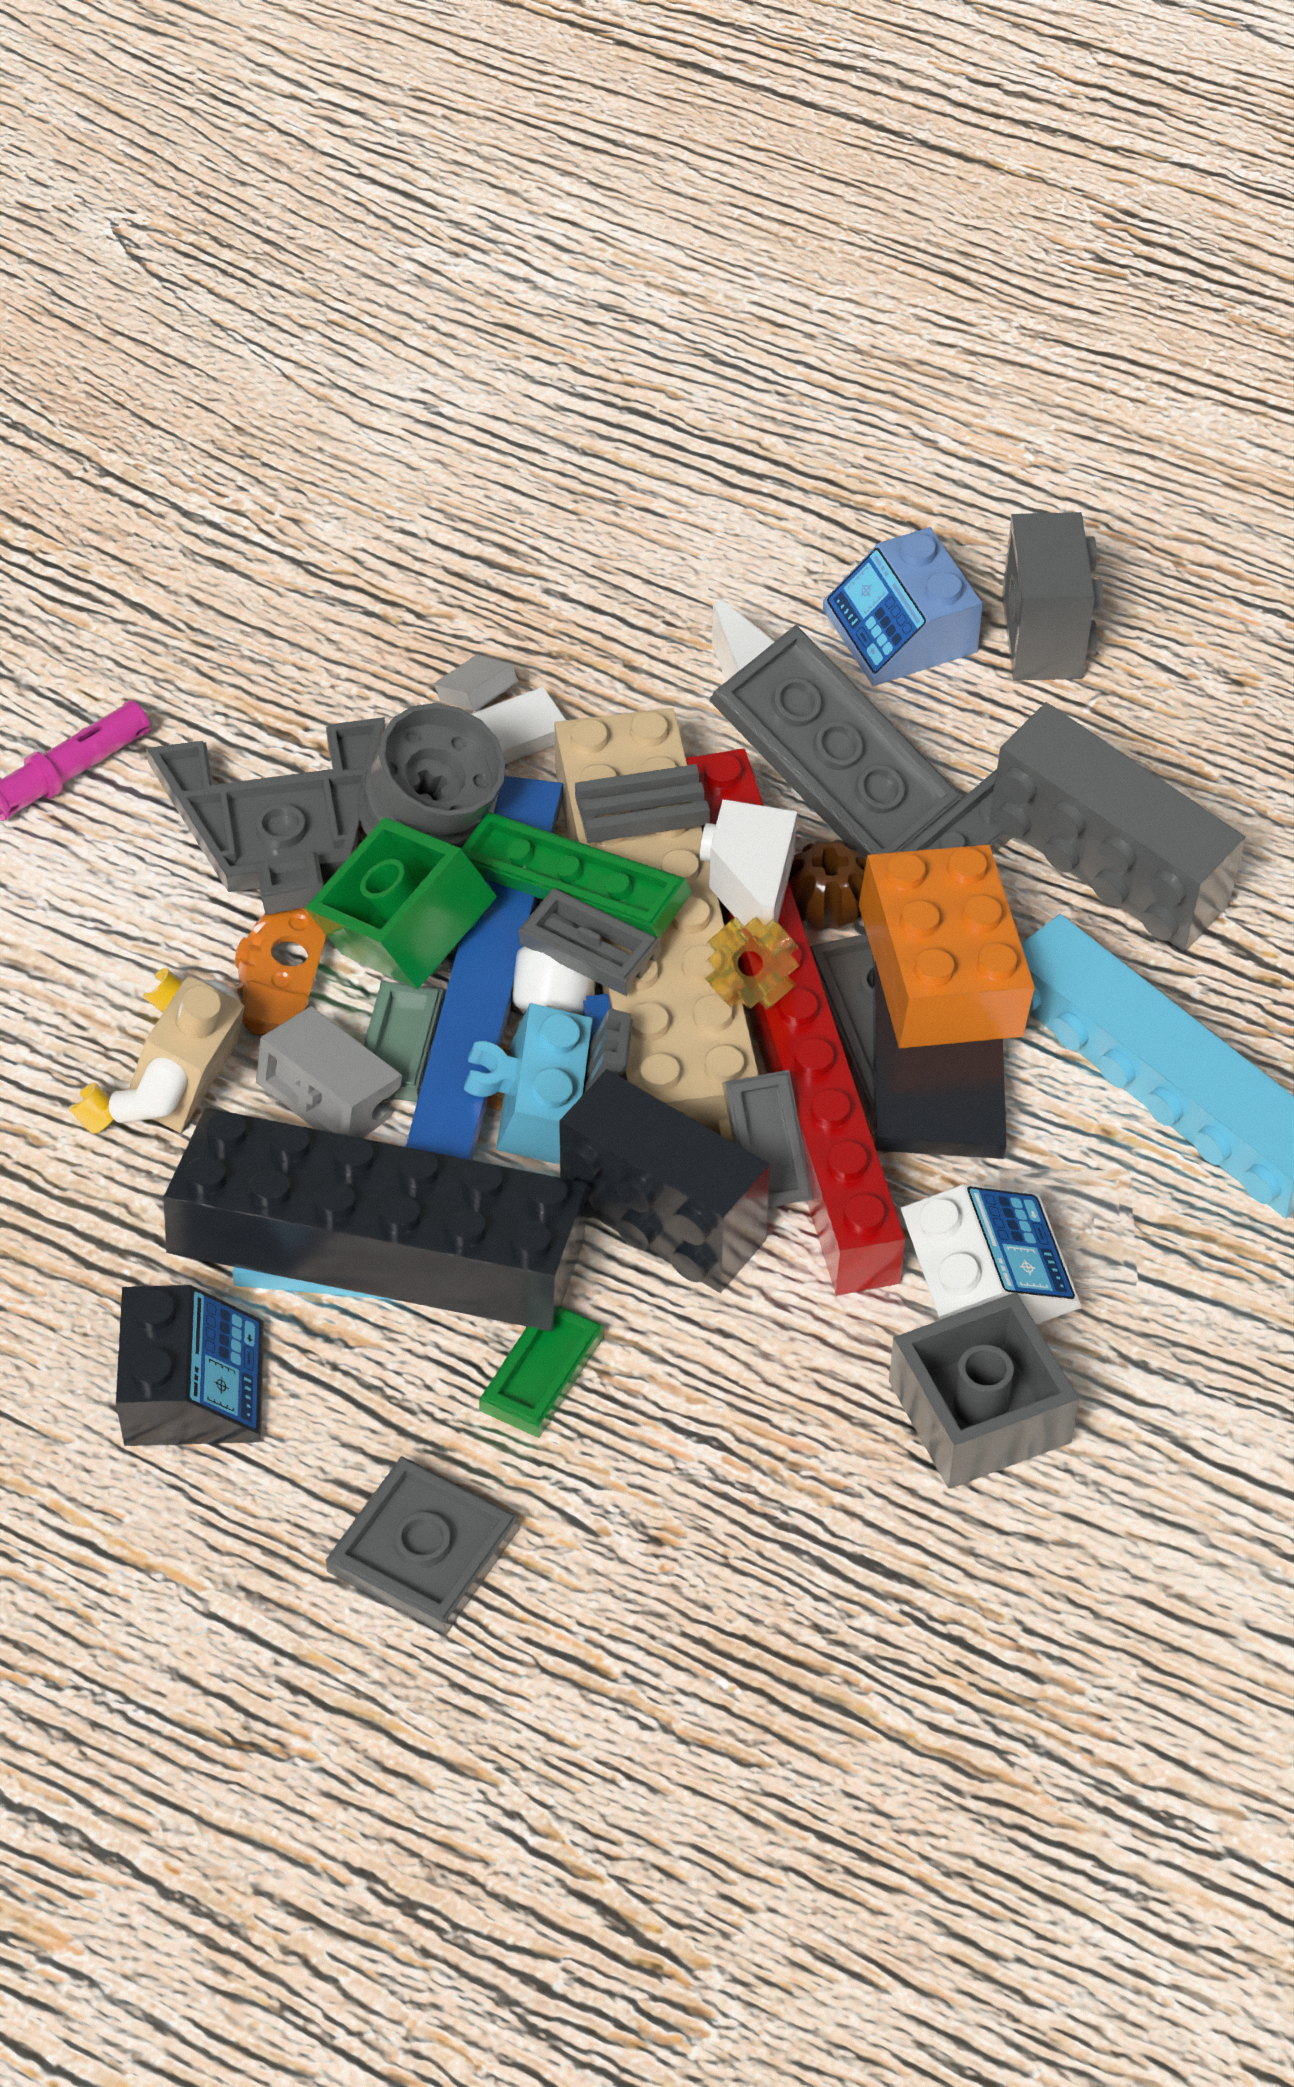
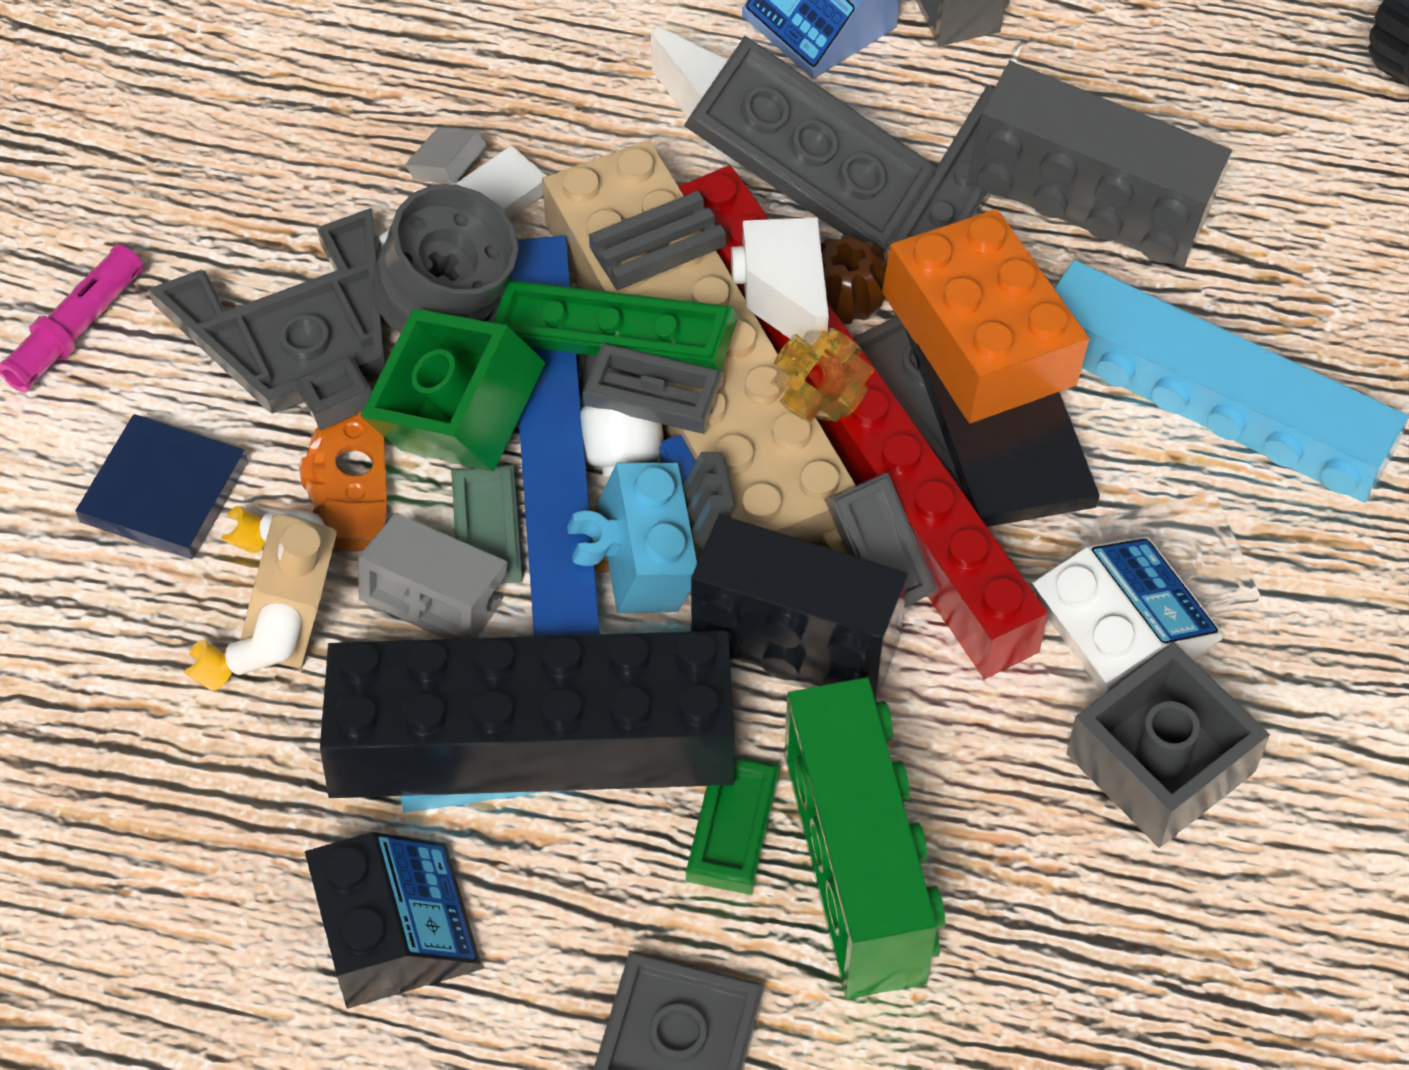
camera: 15 degrees left, 5 degrees up
(103, 935) = (162, 486): none -> dark blue tile
(650, 1402) = (860, 838): none -> green brick

